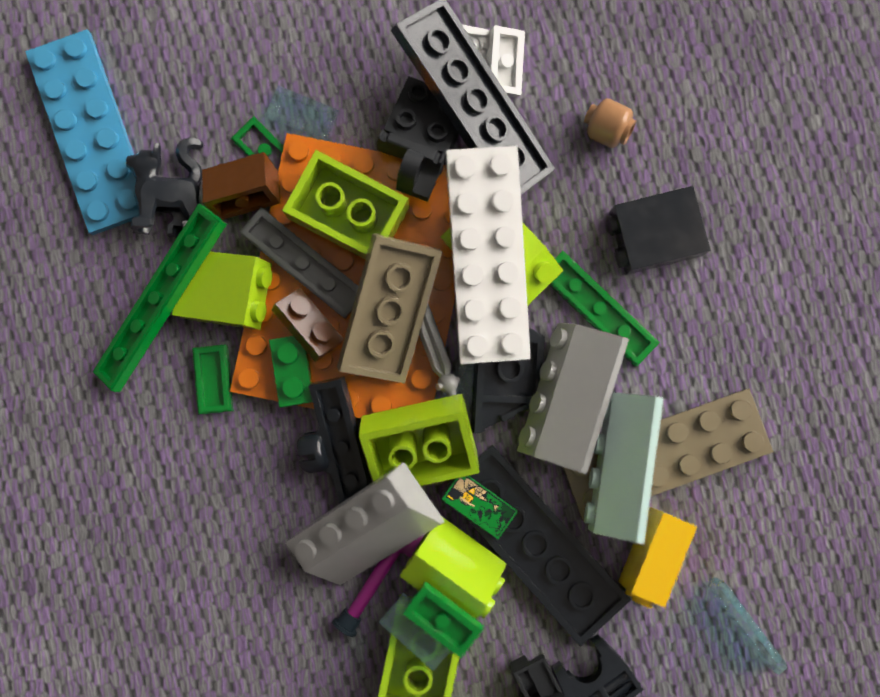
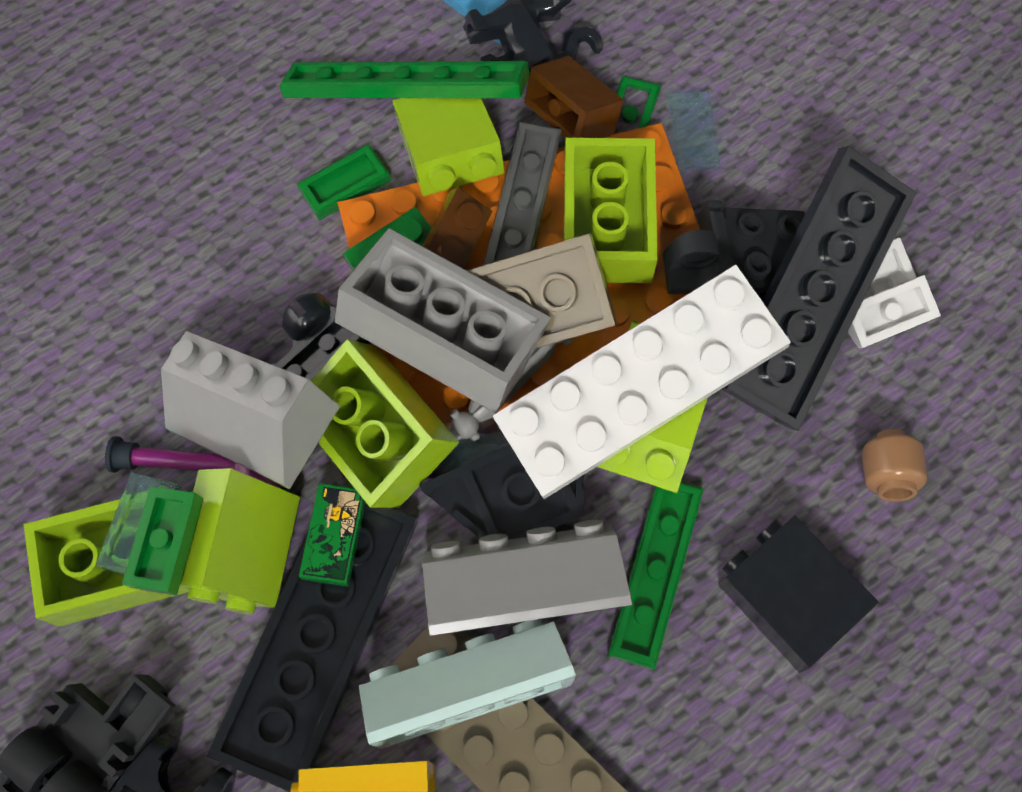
camera: 65 degrees right, 15 degrees down
(377, 364) = (440, 319): none -> light grey slope

